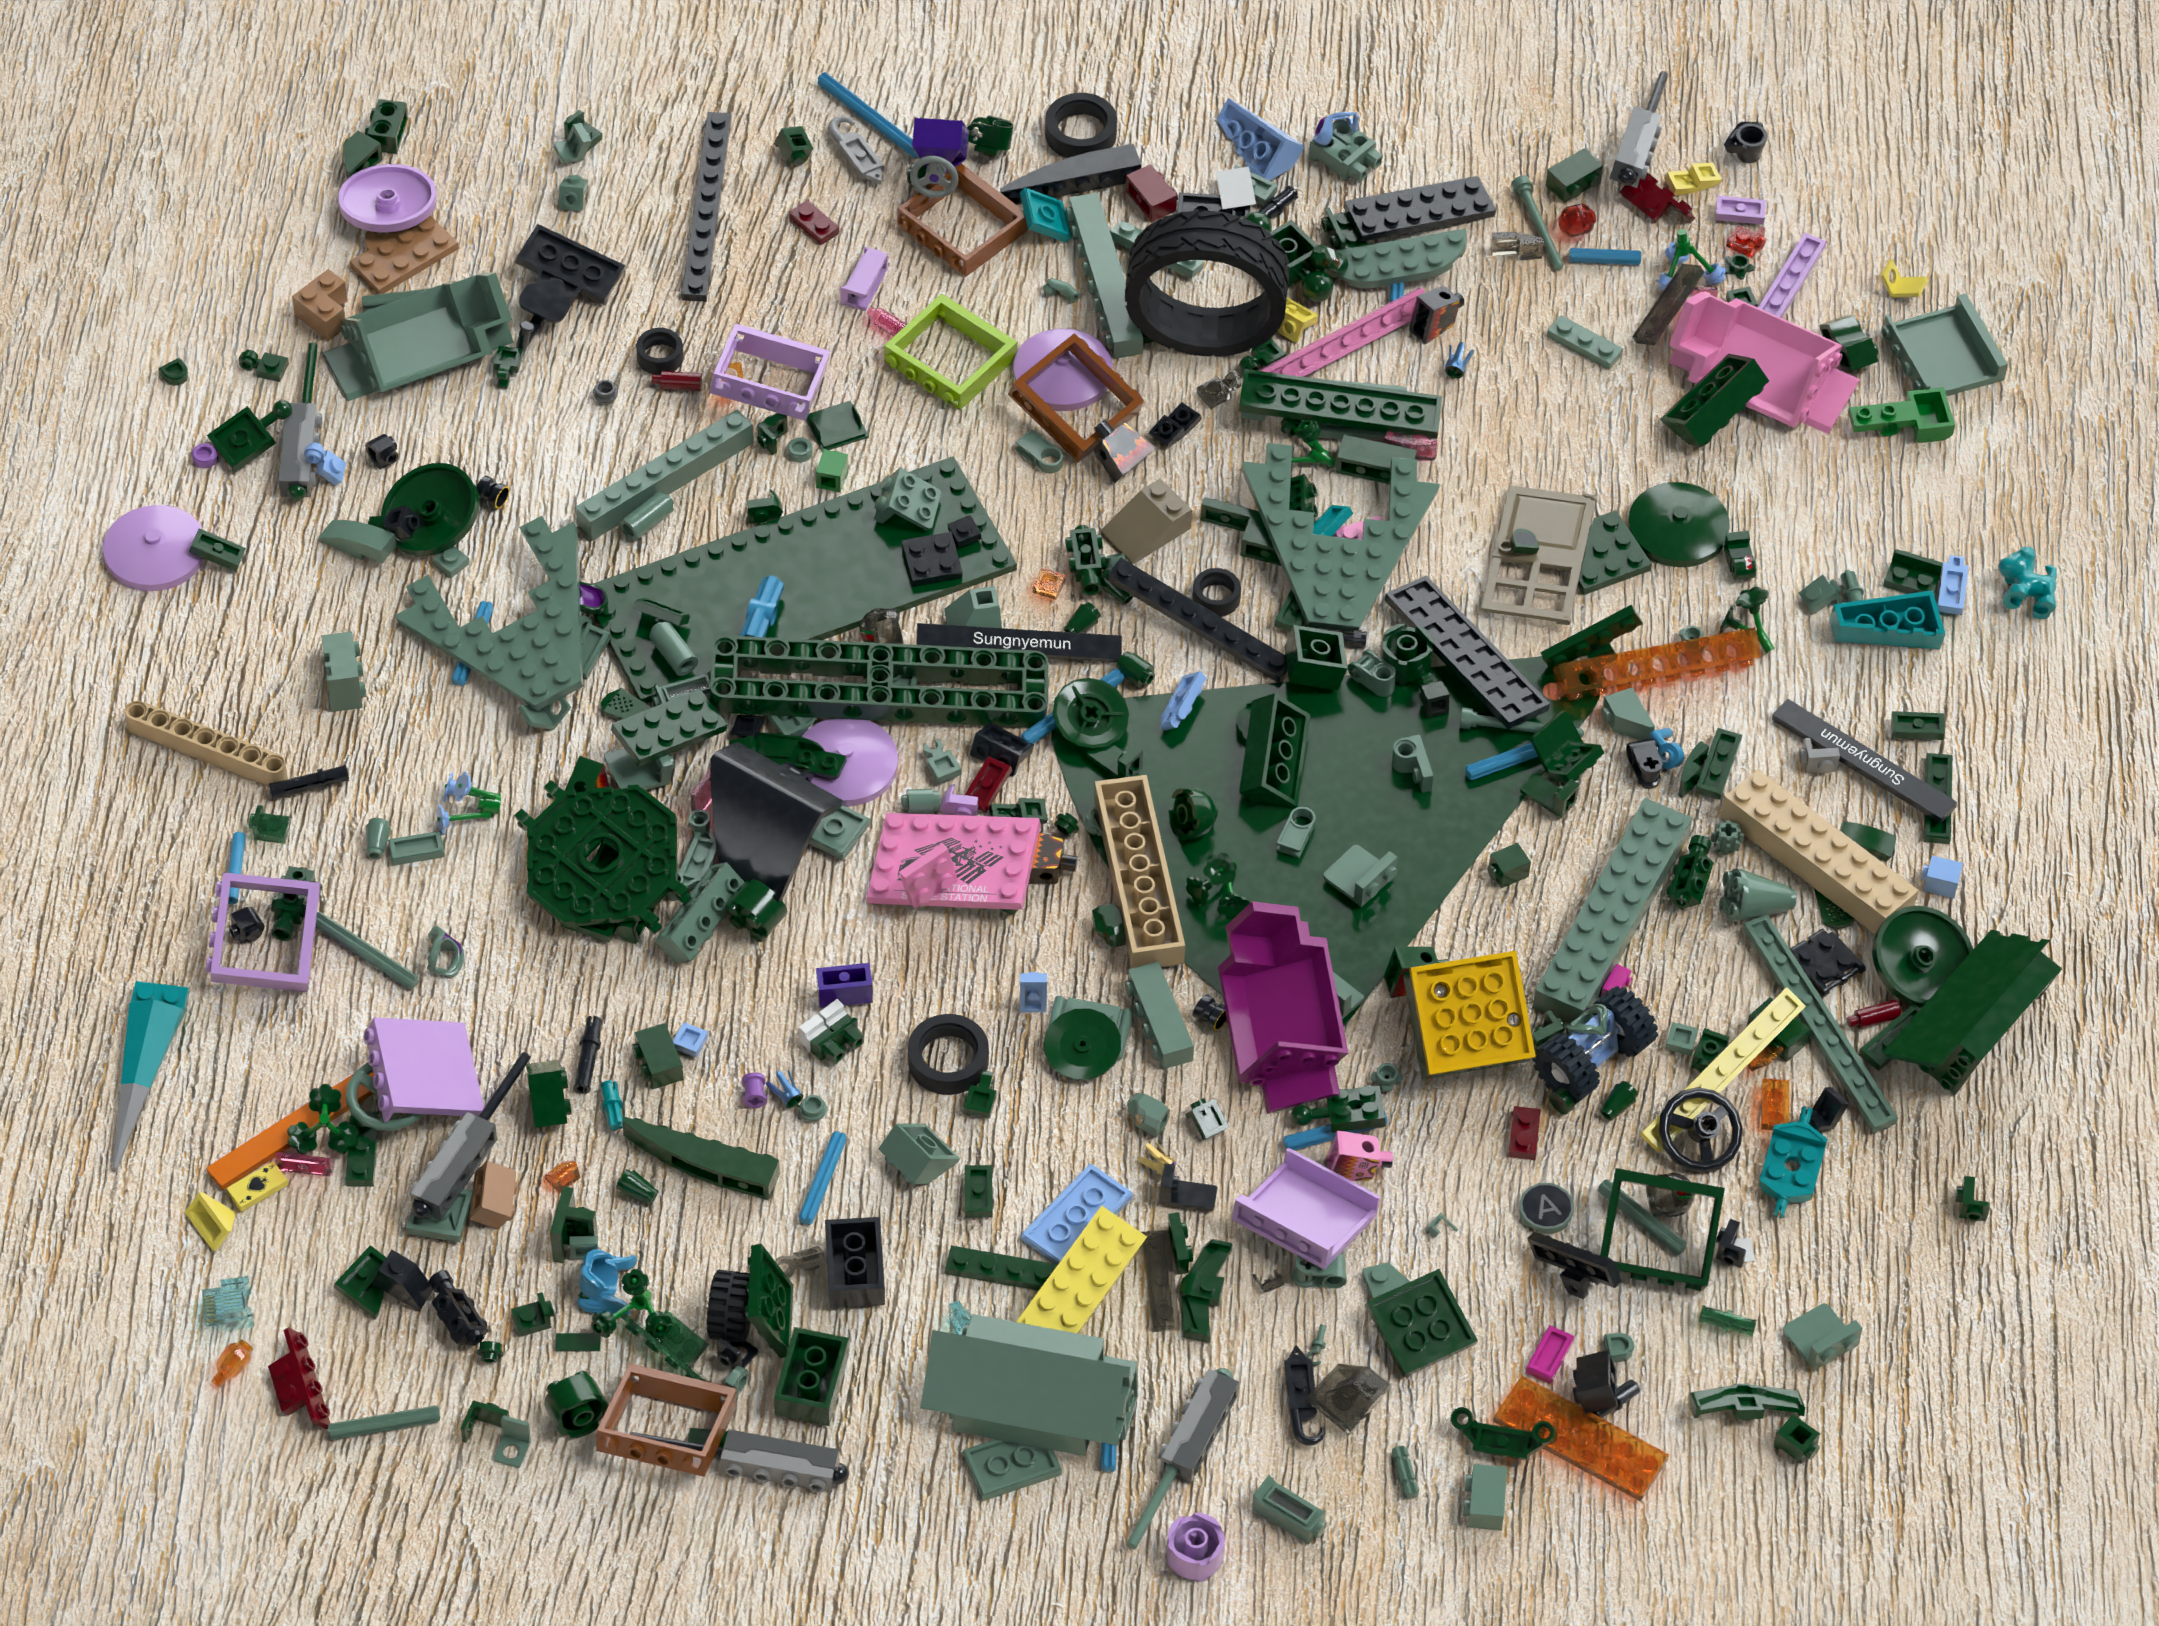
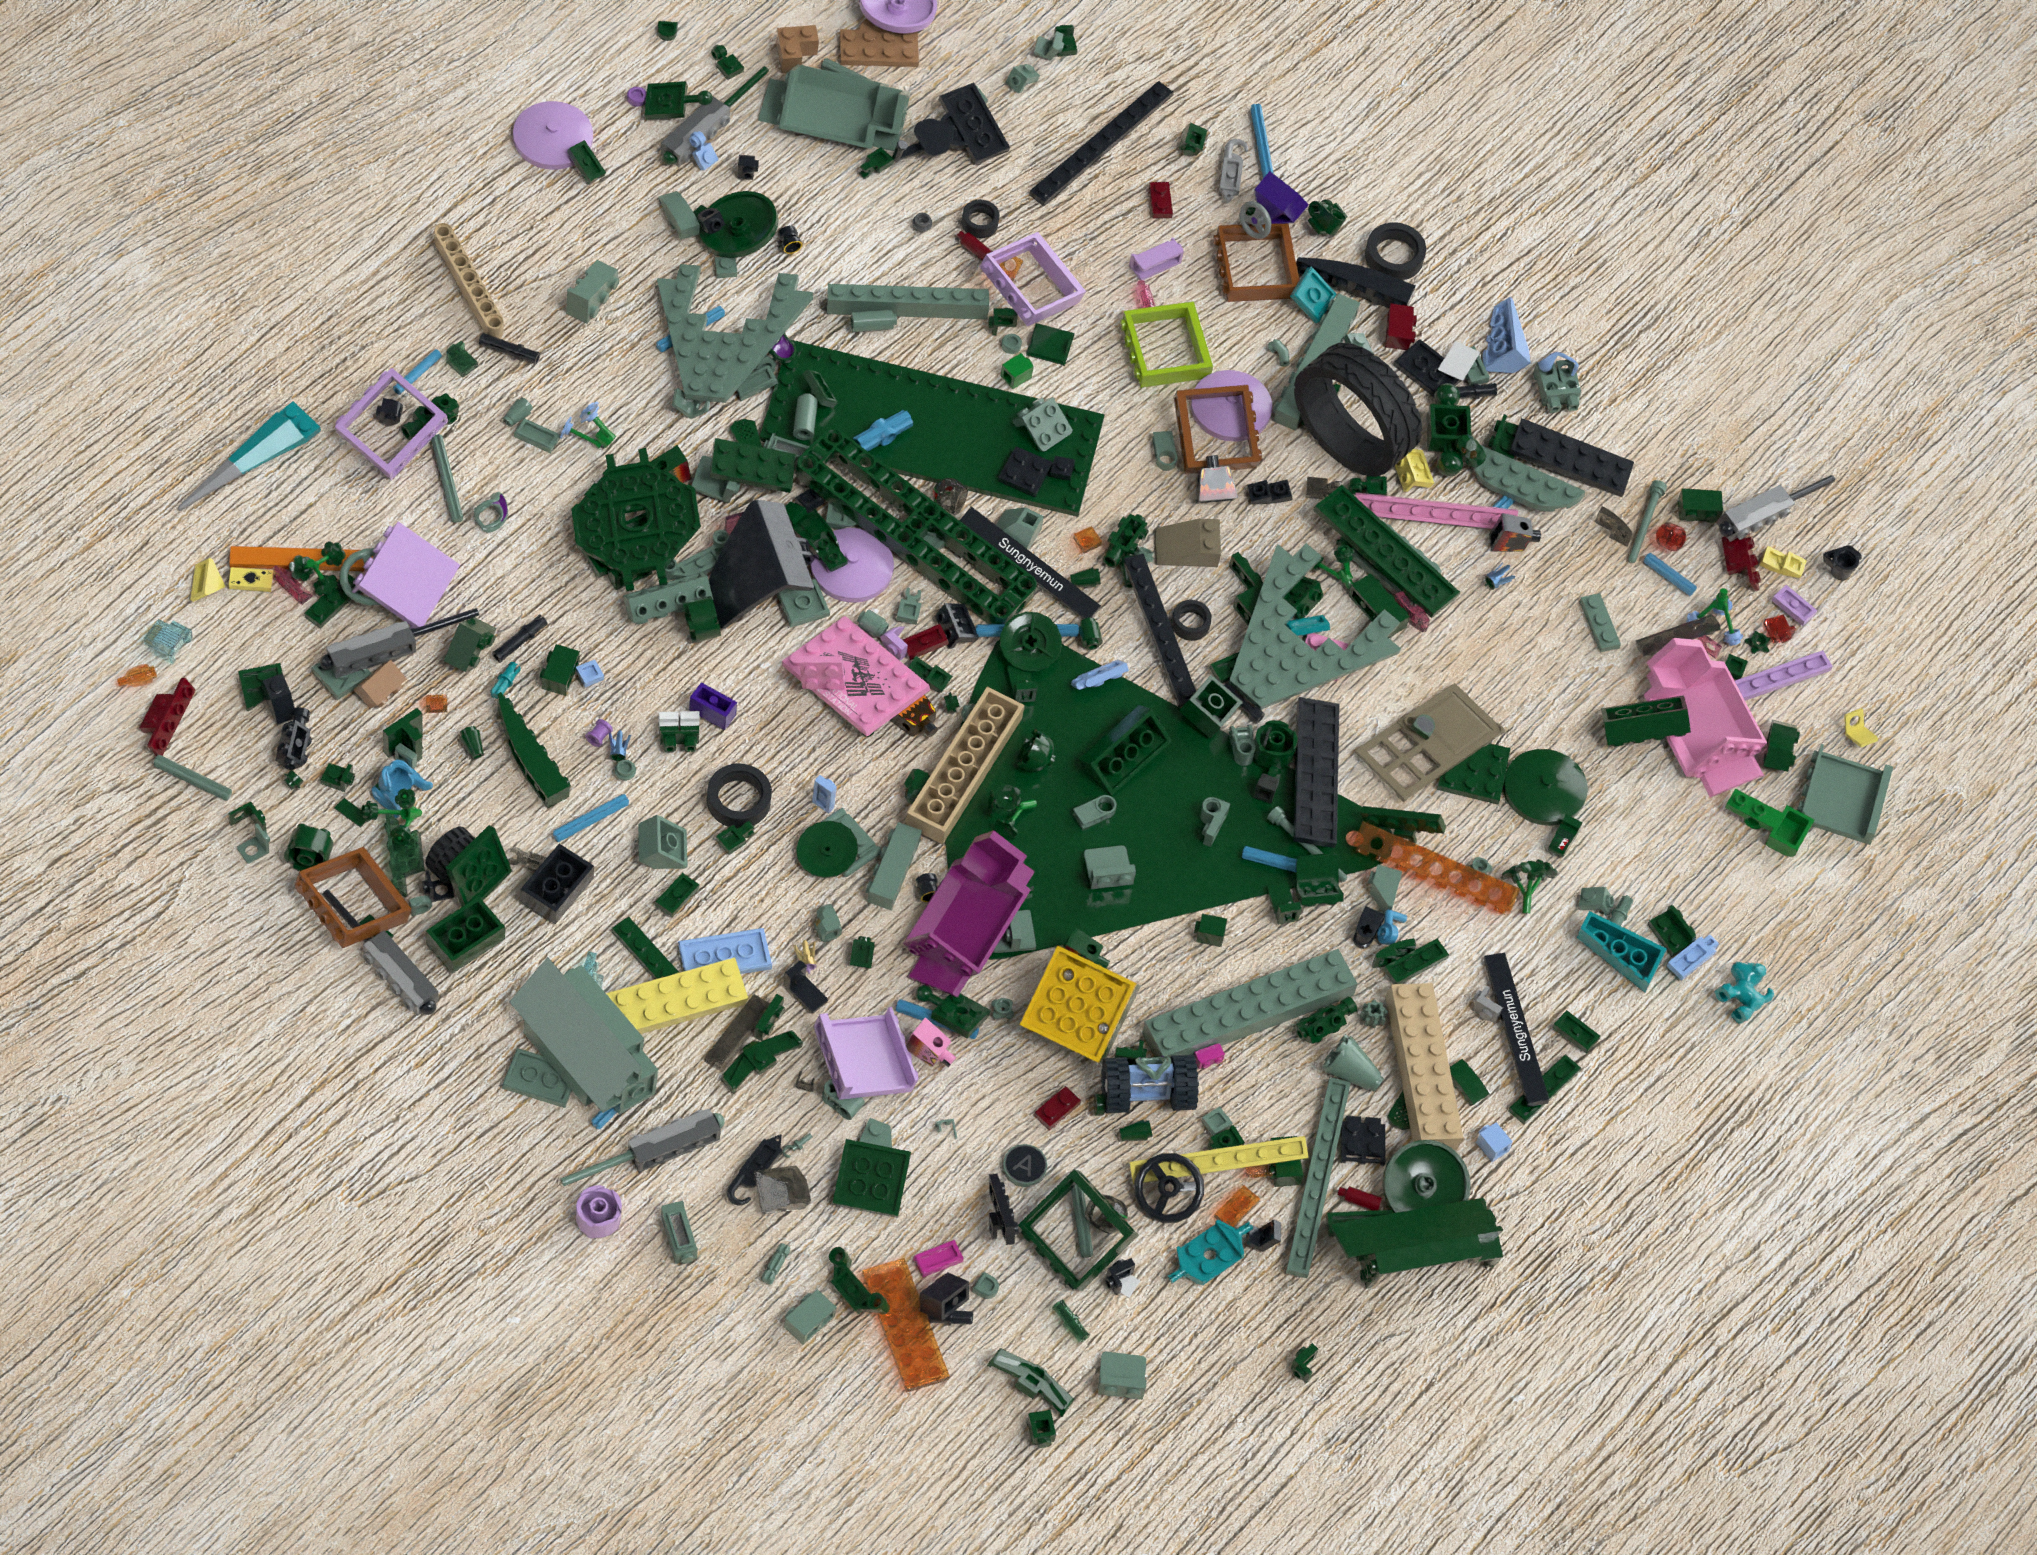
camera: 30 degrees right, 5 degrees up
(764, 509) = (951, 367): dark green plate -> none

